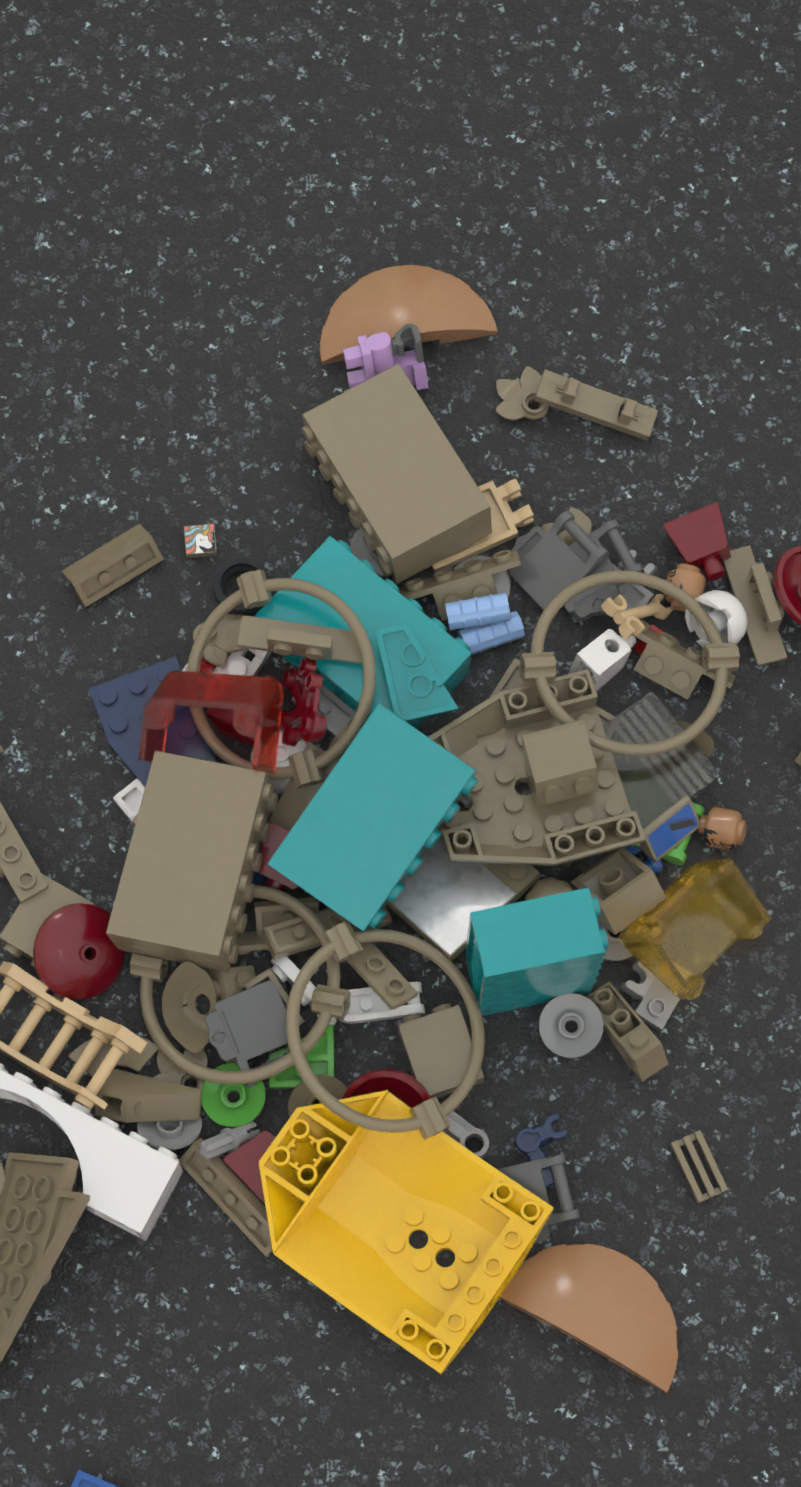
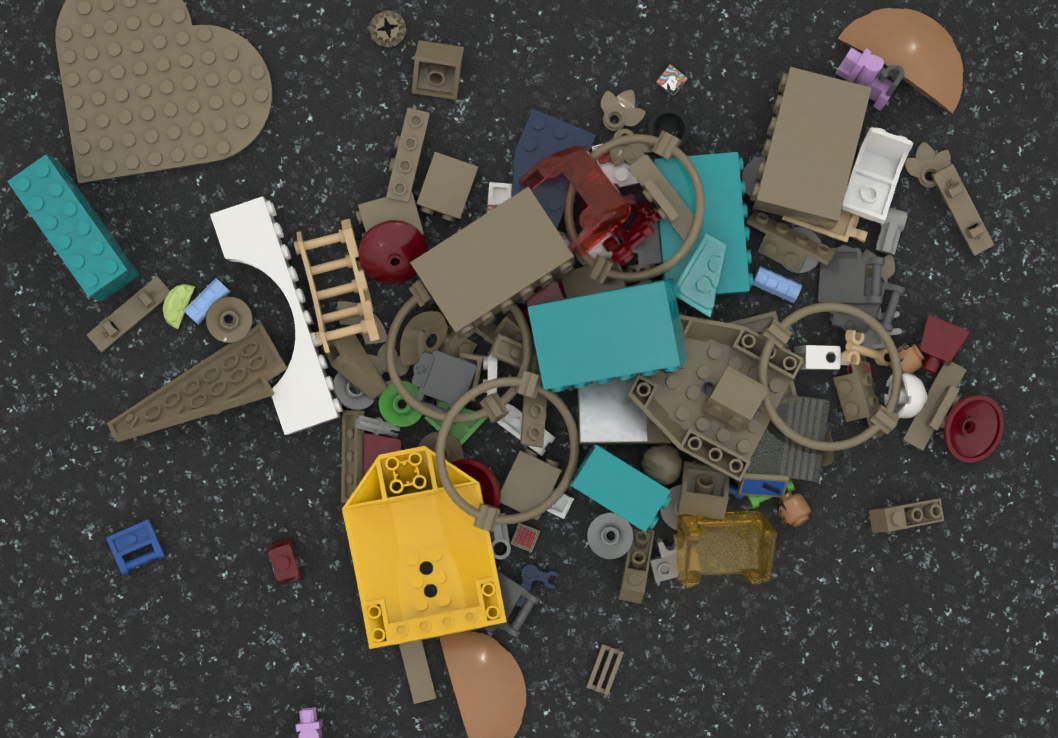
camera: 45 degrees right, 15 degrees up
(74, 839) = (447, 187): none -> dark tan panel
(113, 564) = (611, 49): dark tan panel -> none
(175, 610) = (623, 108): none -> dark tan plate
(267, 1373) = (285, 561): none -> dark red torso
(478, 611) = (779, 268): light blue axle -> none
(481, 439) = (875, 174): none -> white bracket
(488, 1111) = (525, 537): none -> tile
(494, 1045) = (562, 506): none -> white tile
(512, 1355) = (417, 671): none -> dark tan tile
(544, 478) = (890, 231): none -> light grey piece

